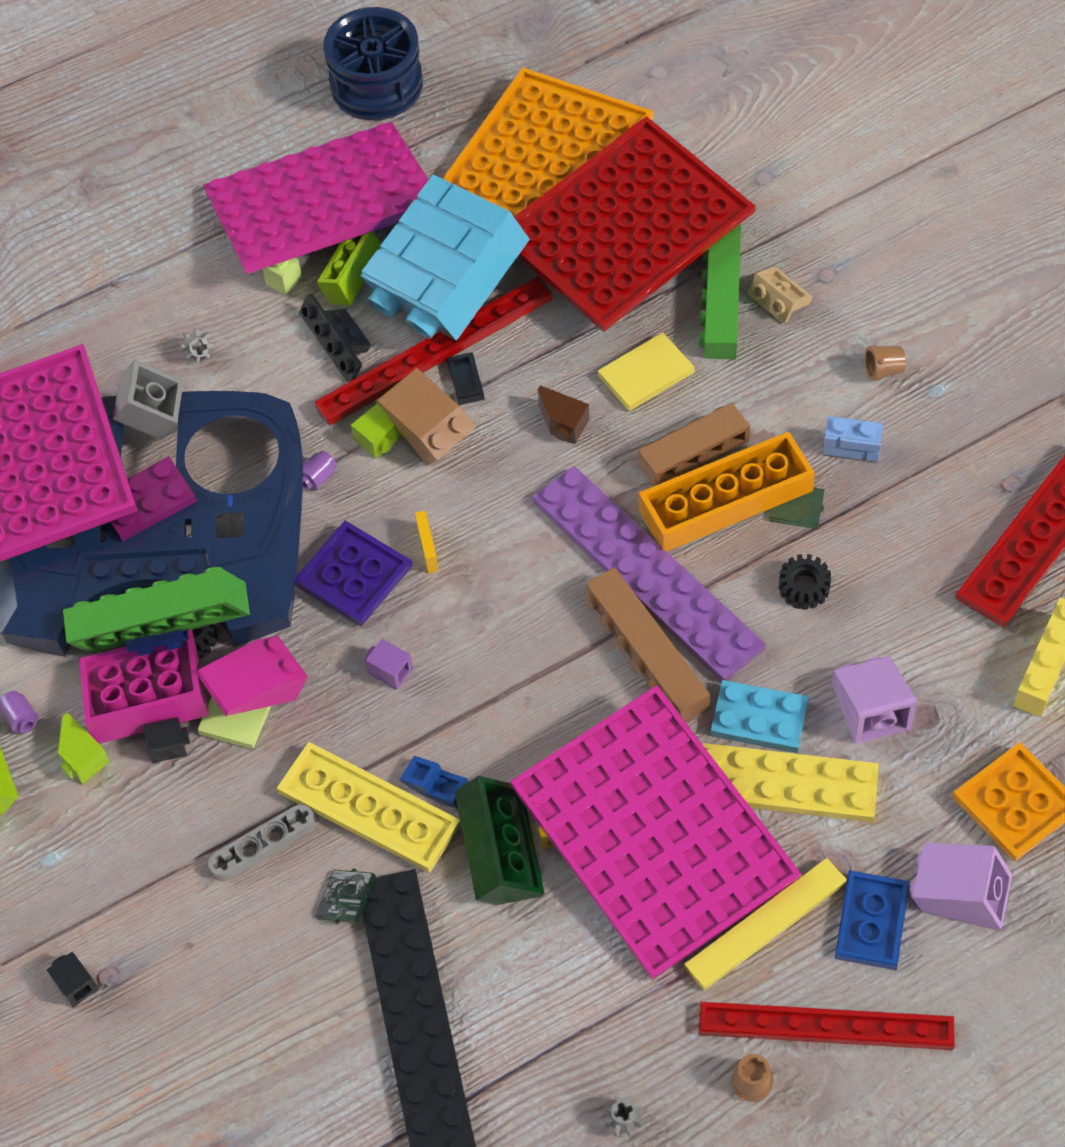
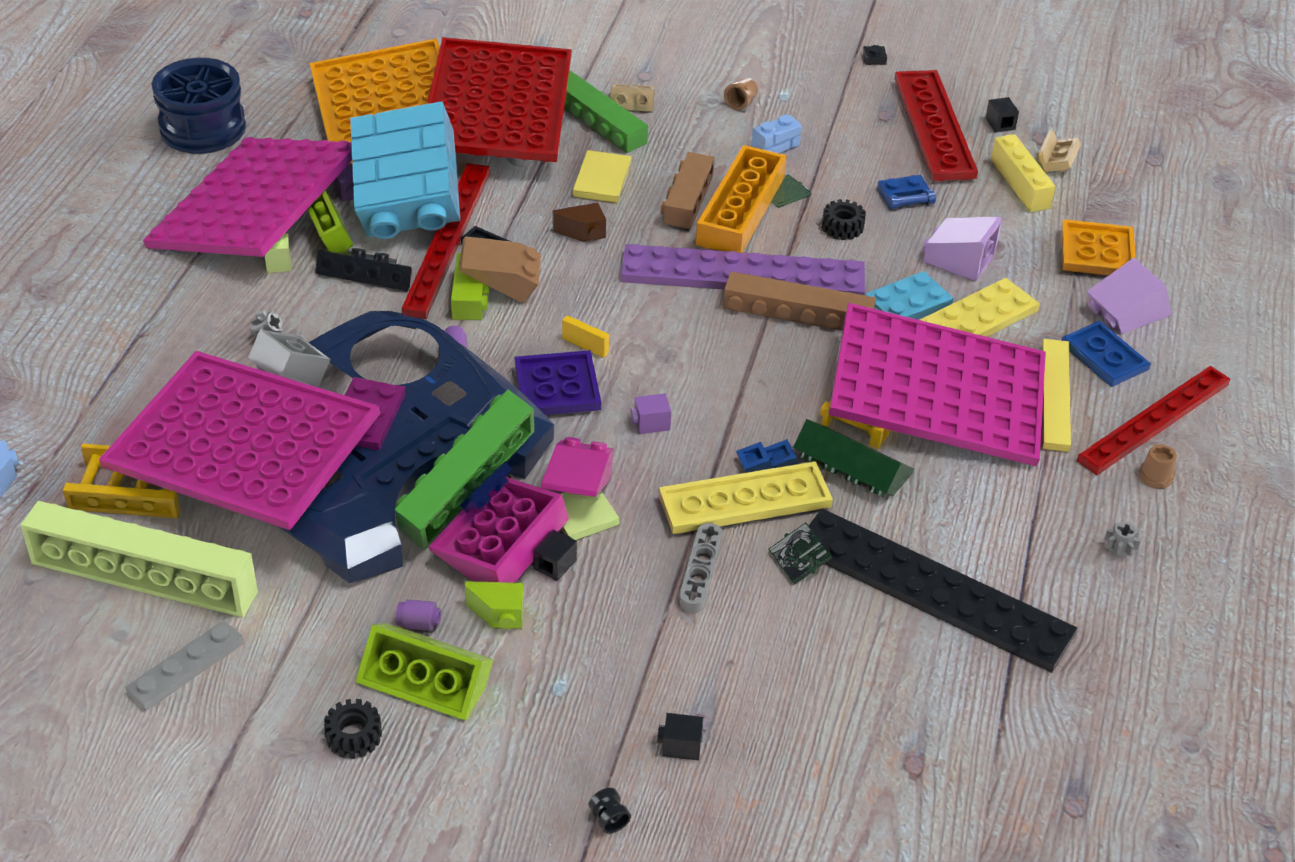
camera: 50 degrees left, 15 degrees down
(912, 586) = (905, 191): none -> blue plate

